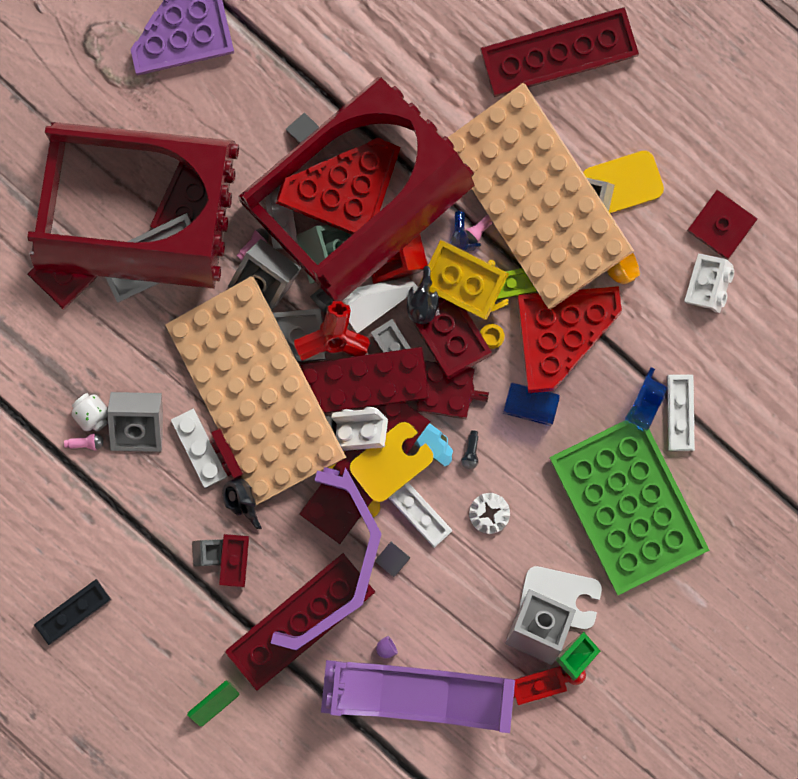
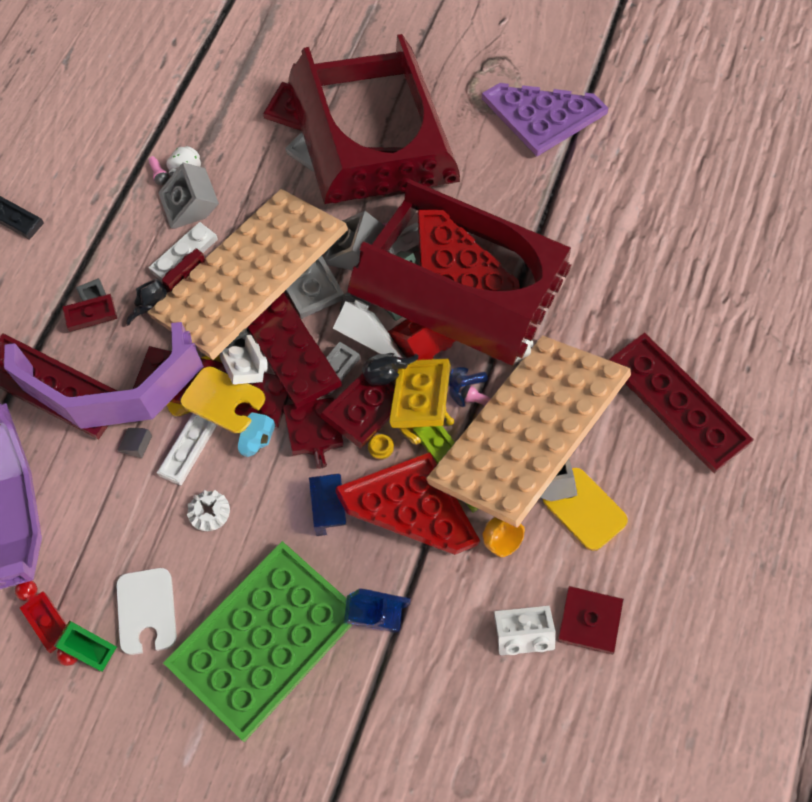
camera: 70 degrees right, 20 degrees down
(333, 335) = (320, 305): red piece -> none
(386, 648) = (46, 468): medium lavender hinge -> none
(470, 457) = (255, 472): black piece -> none
(540, 627) = (106, 598): light grey slope -> none
(680, 412) = (379, 655): white tile -> none

